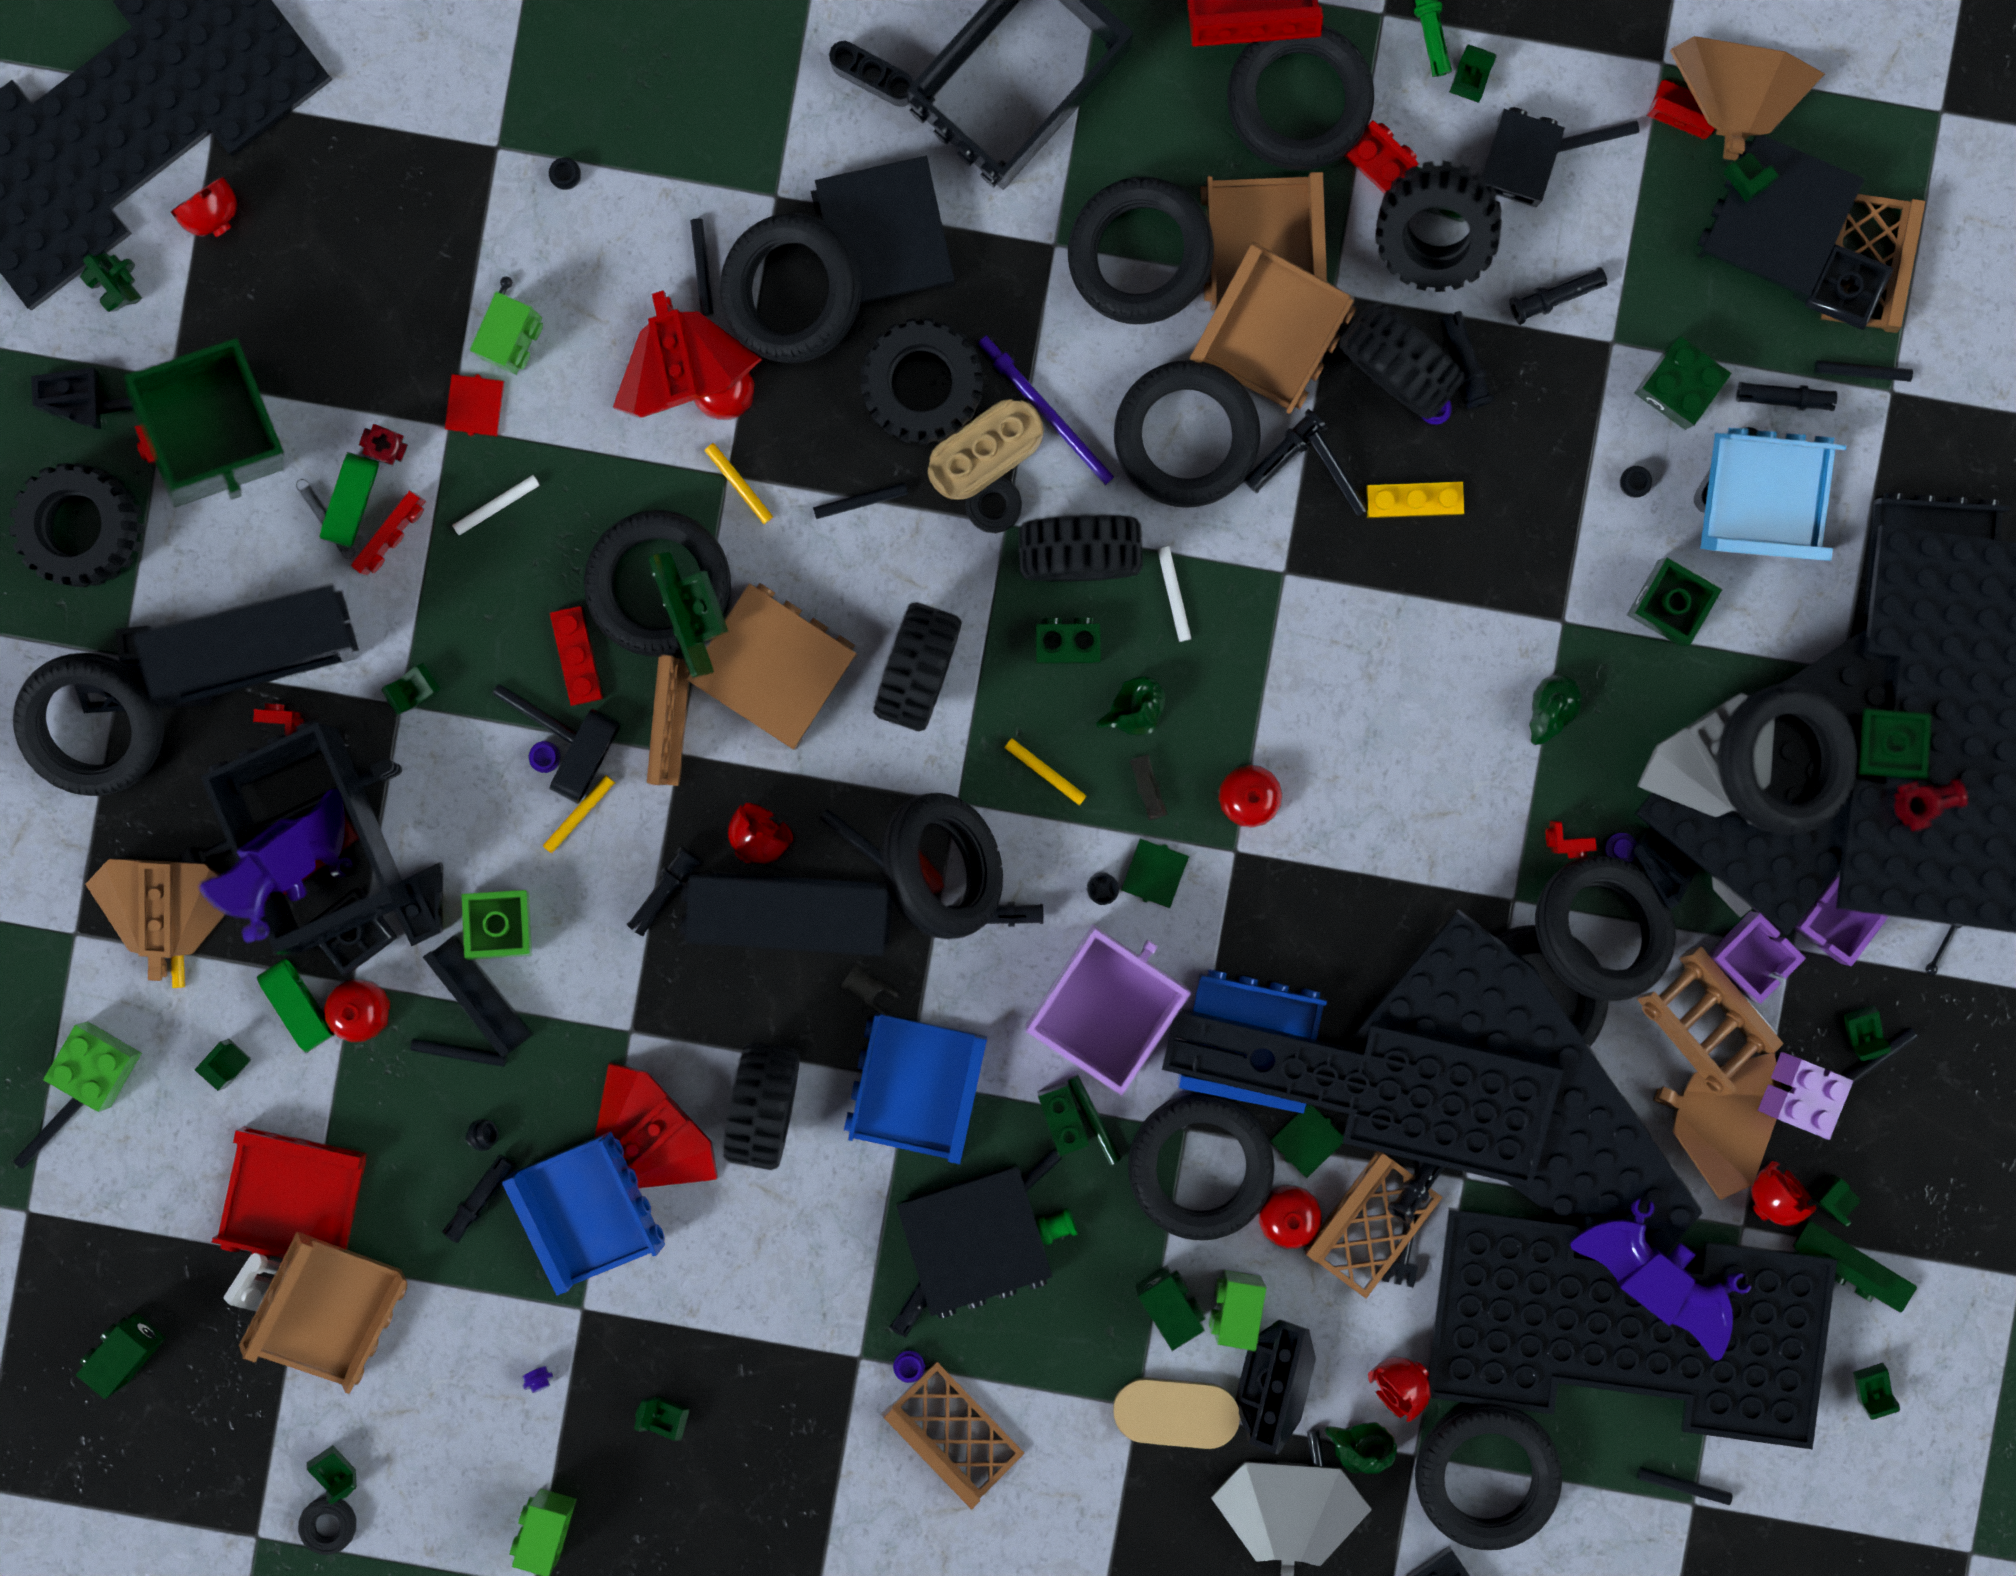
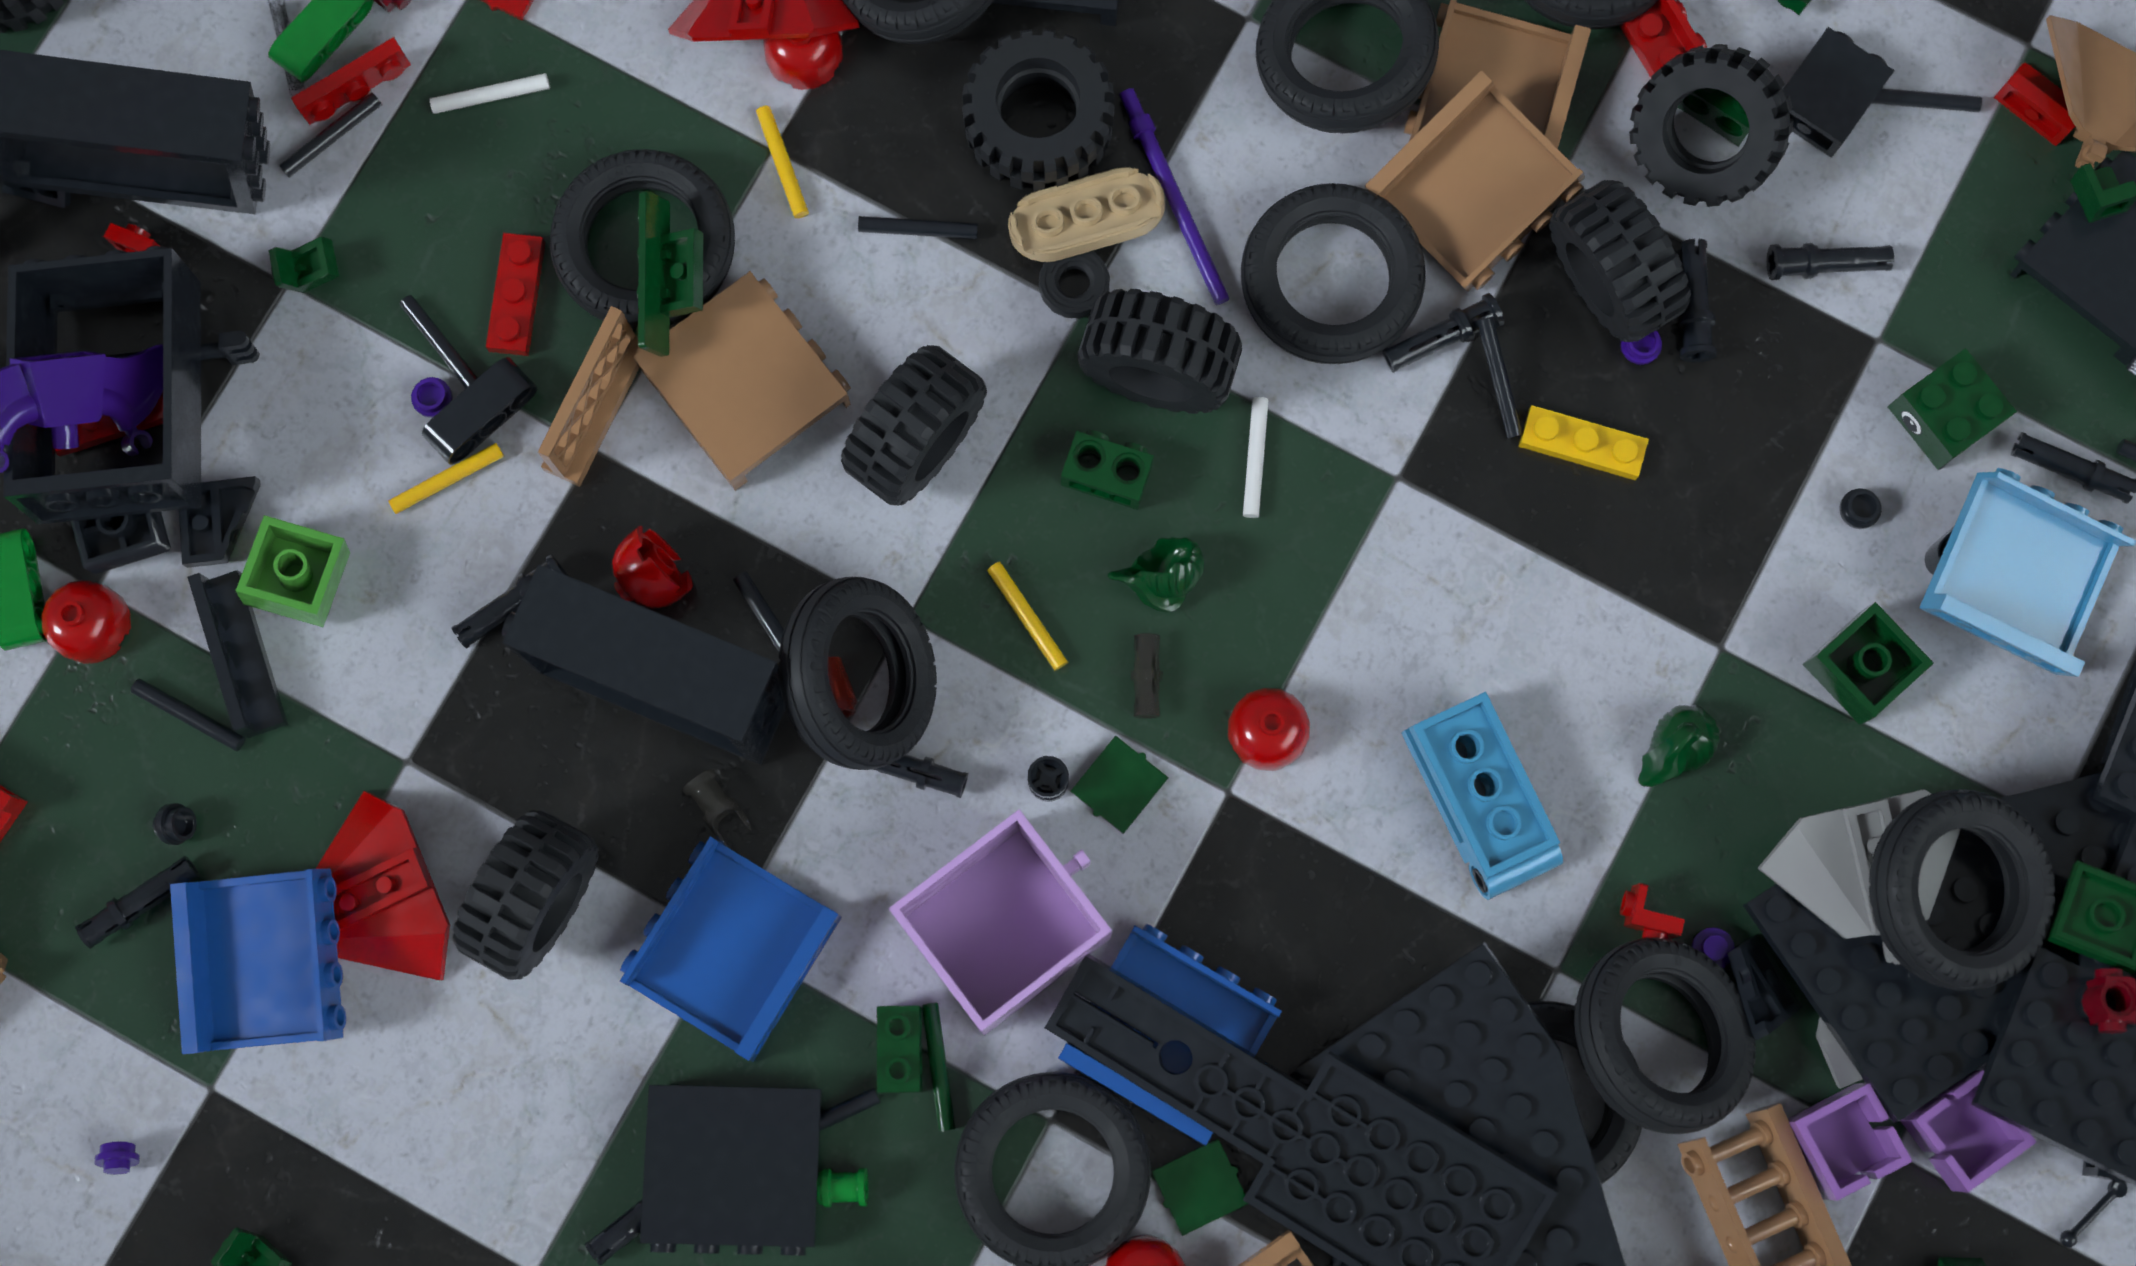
camera: 20 degrees right, 10 degrees down
(387, 579) = (330, 134): none -> black bar
(1444, 816) = (1499, 833): none -> dark azure hinge

